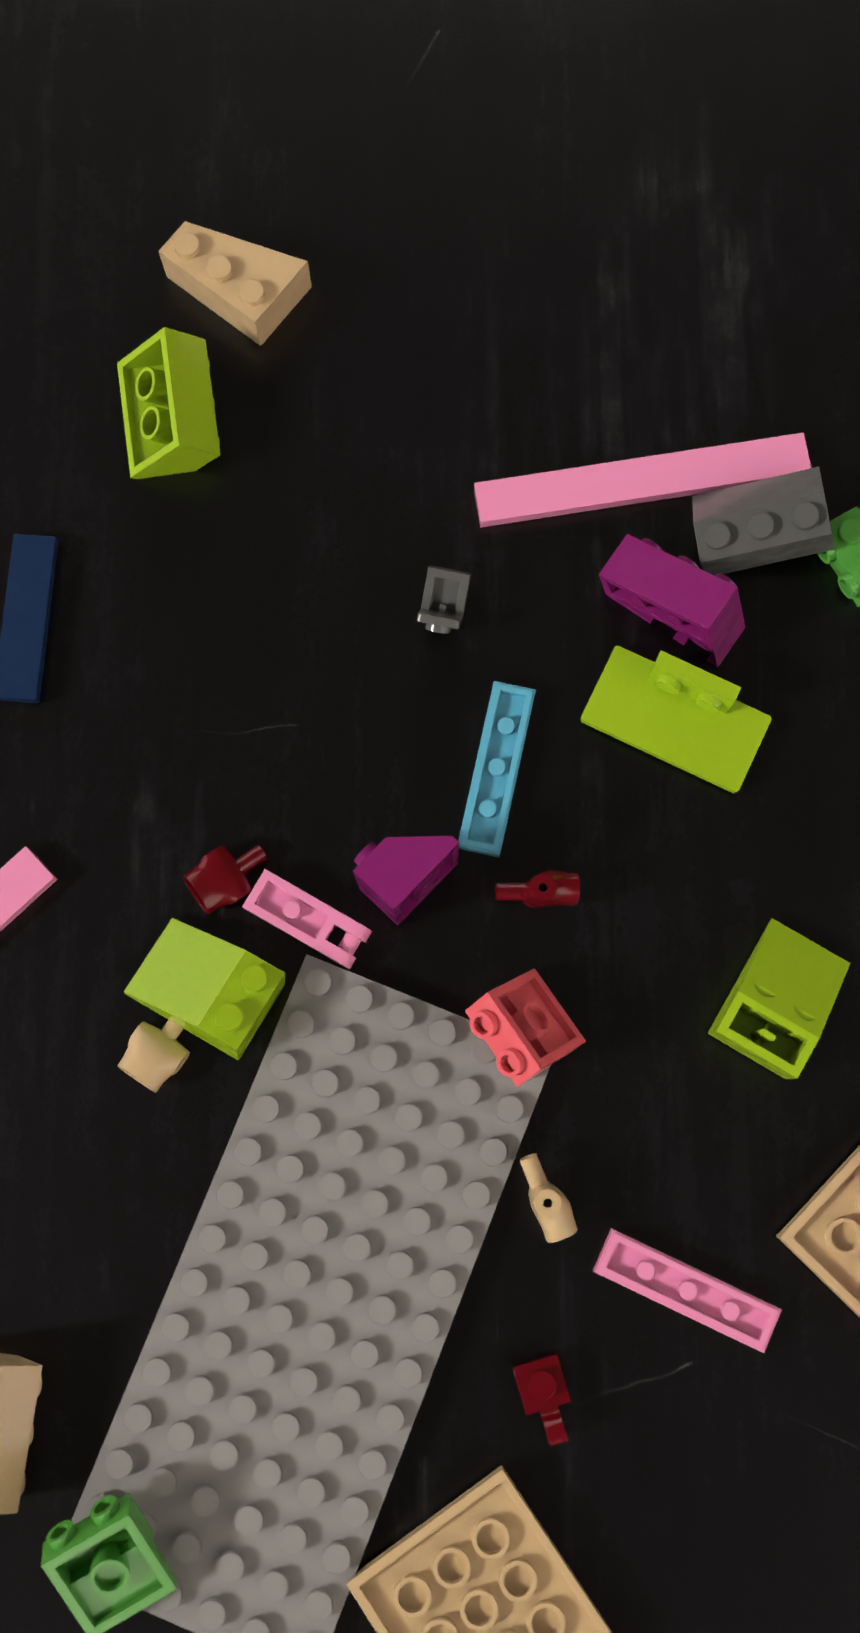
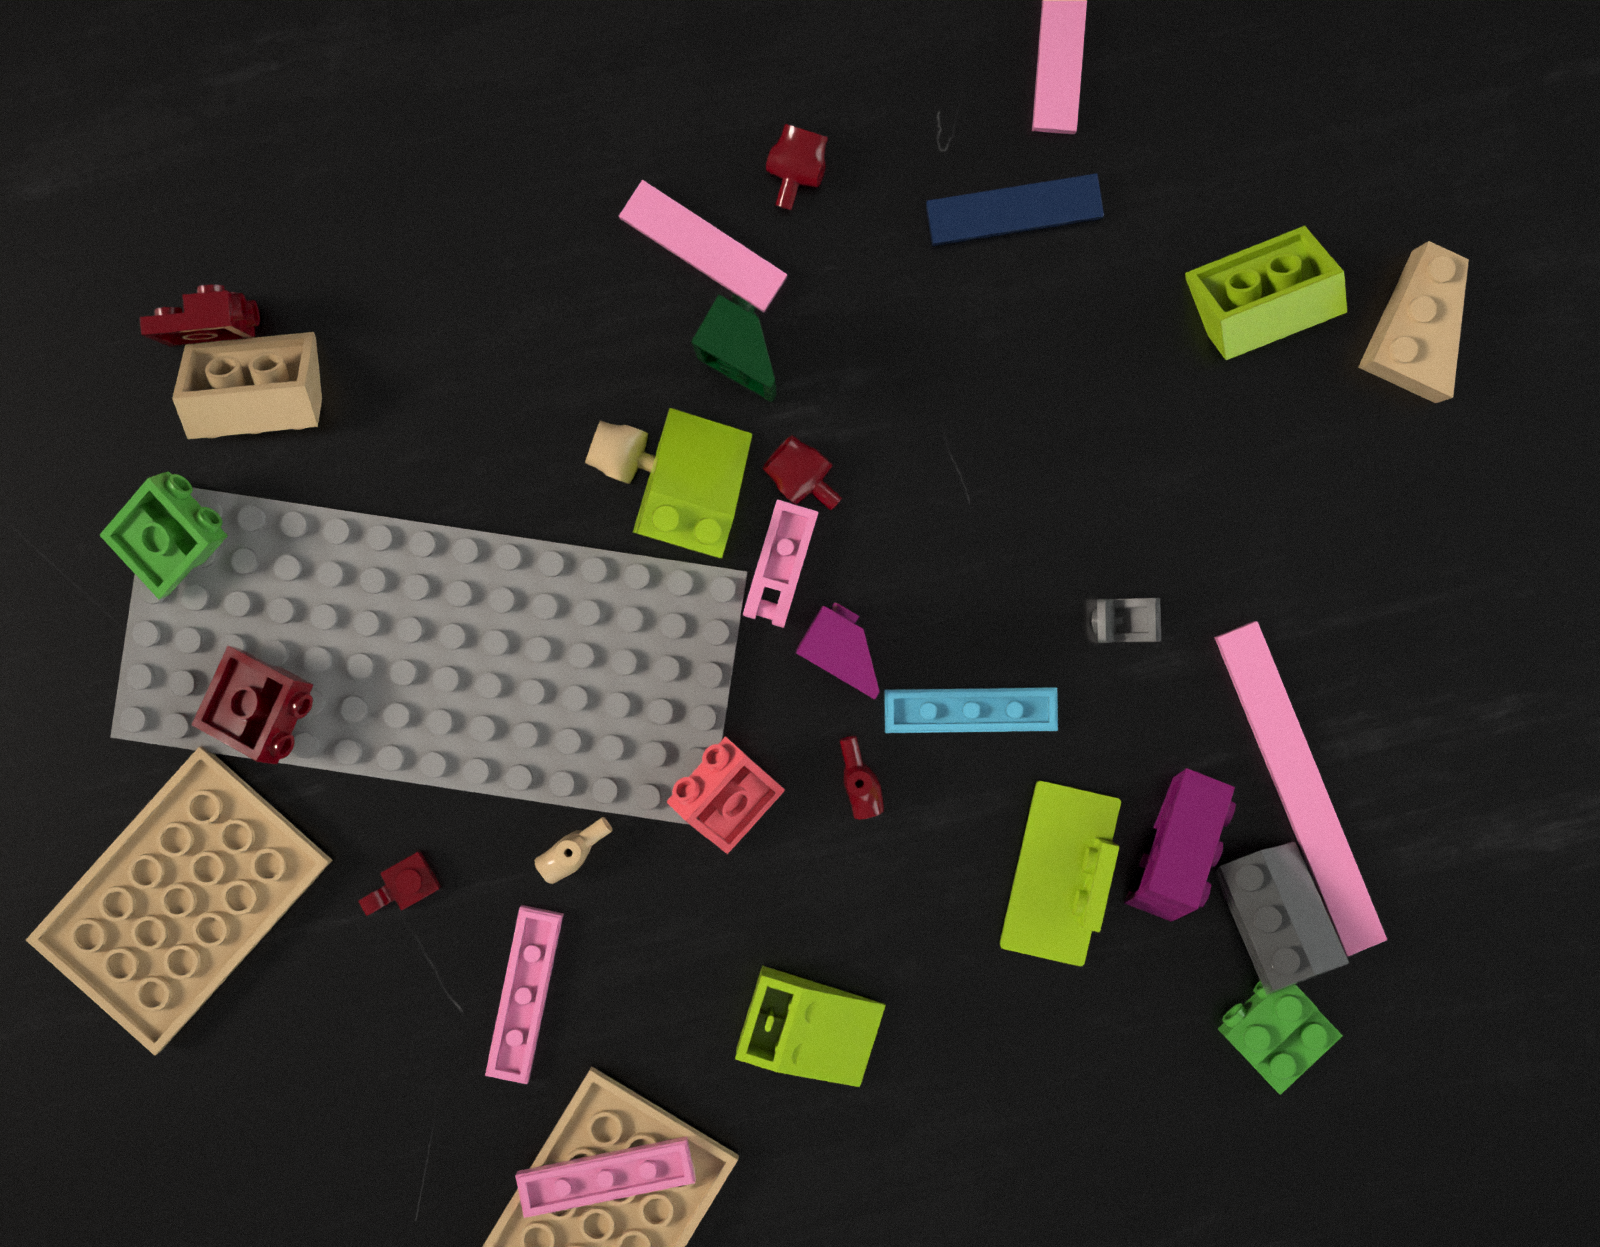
camera: 75 degrees right, 10 degrees up
(79, 903) = (735, 345): none -> dark green slope
(316, 1510) = (253, 706): none -> dark red plate

